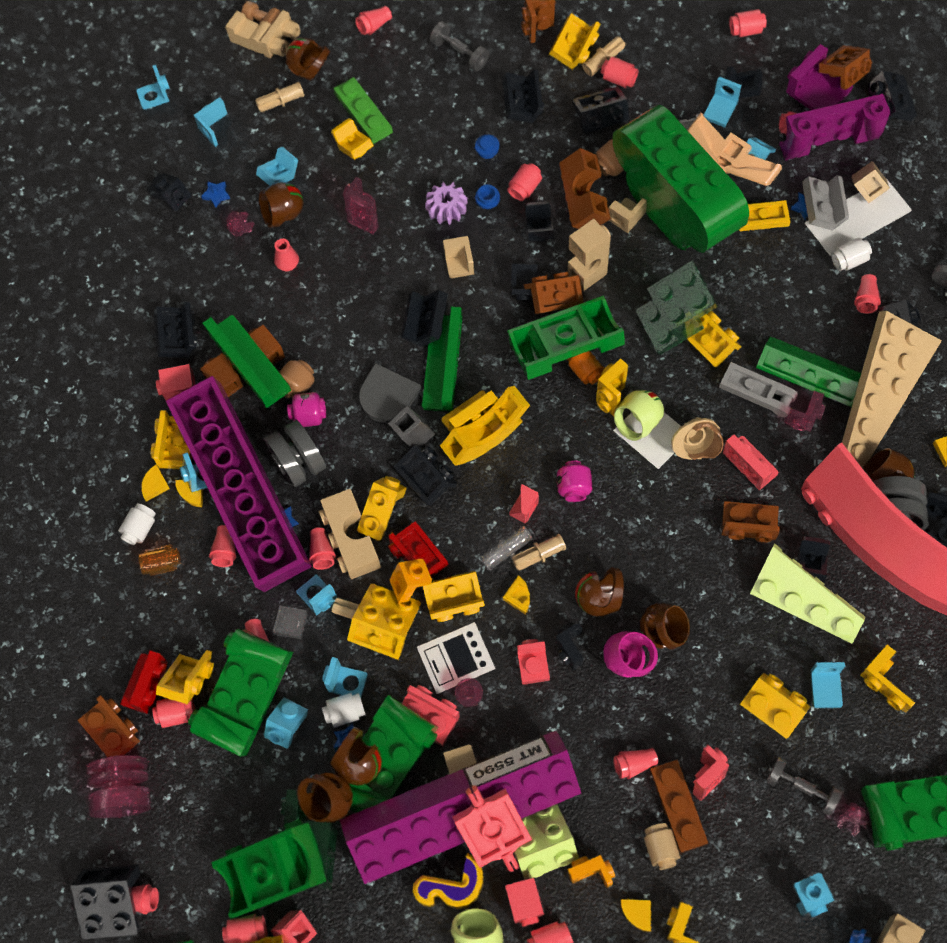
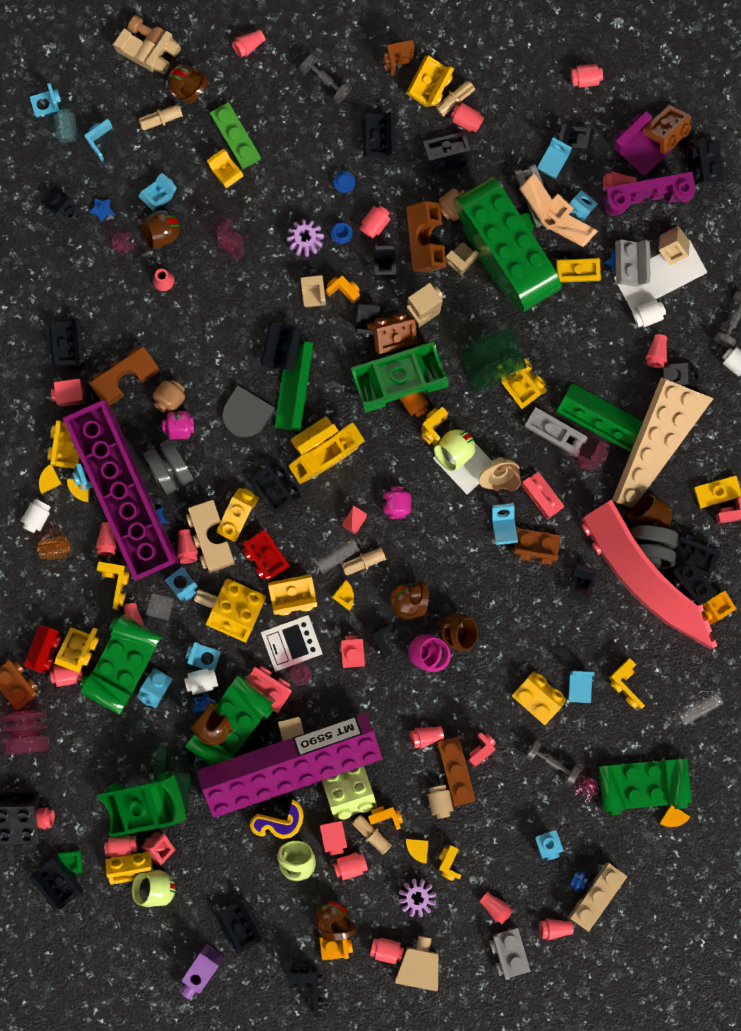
camera: 10 degrees left, 15 degrees up
(174, 112) = (65, 126): none -> clear light blue brick
(227, 581) = (109, 571): none -> yellow bracket
(248, 359) = (130, 379): green panel -> none
(328, 798) = (187, 755): reddish brown helmet -> none
(409, 576) = (258, 580): light orange bracket -> none
(411, 427) = (265, 449): flat silver brick -> none
(492, 828) = (312, 785): coral plate -> none
(497, 251) = (349, 289): none -> light orange bracket
(576, 897) = (372, 834): none -> tan axle
(707, 499) = (504, 525): none -> medium azure bracket
(800, 594) = (566, 610): yellowish green wing -> none

